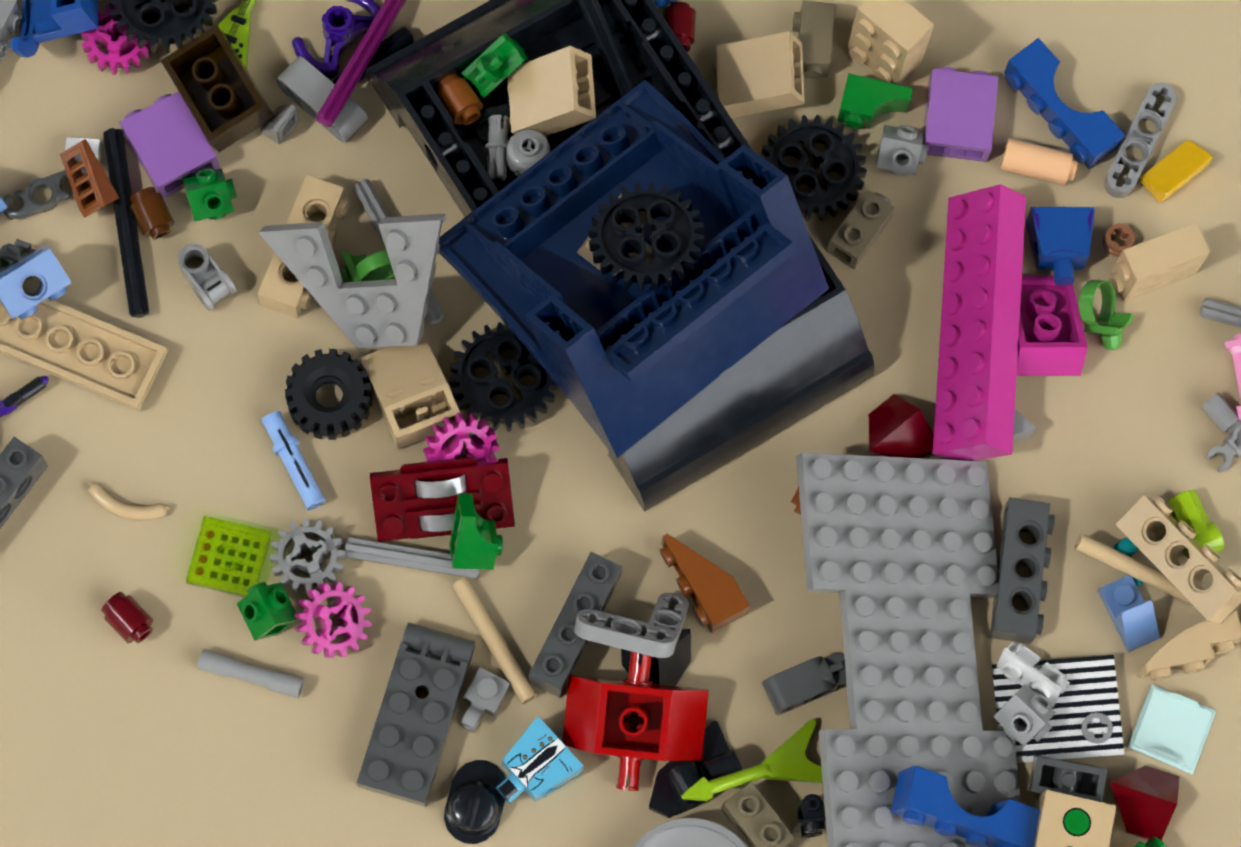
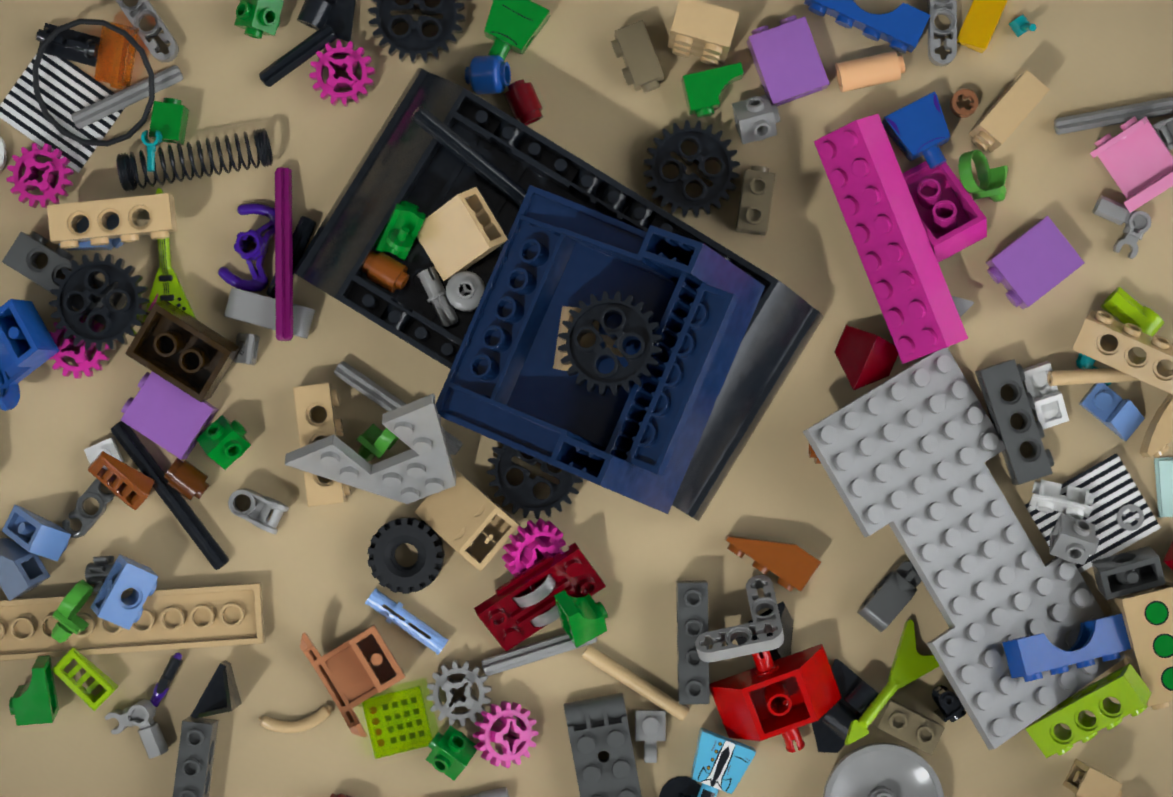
camera: 20 degrees left, 15 degrees up
(63, 436) = (220, 694): none -> black slope
(215, 478) = (354, 672): none -> nougat piece
(760, 74) = (611, 114): tan brick -> none
(1065, 565) = (1047, 399): none -> white slope
(1116, 424) = (1034, 263): none -> medium lavender brick
(1212, 192) = (1021, 25): none -> teal hand

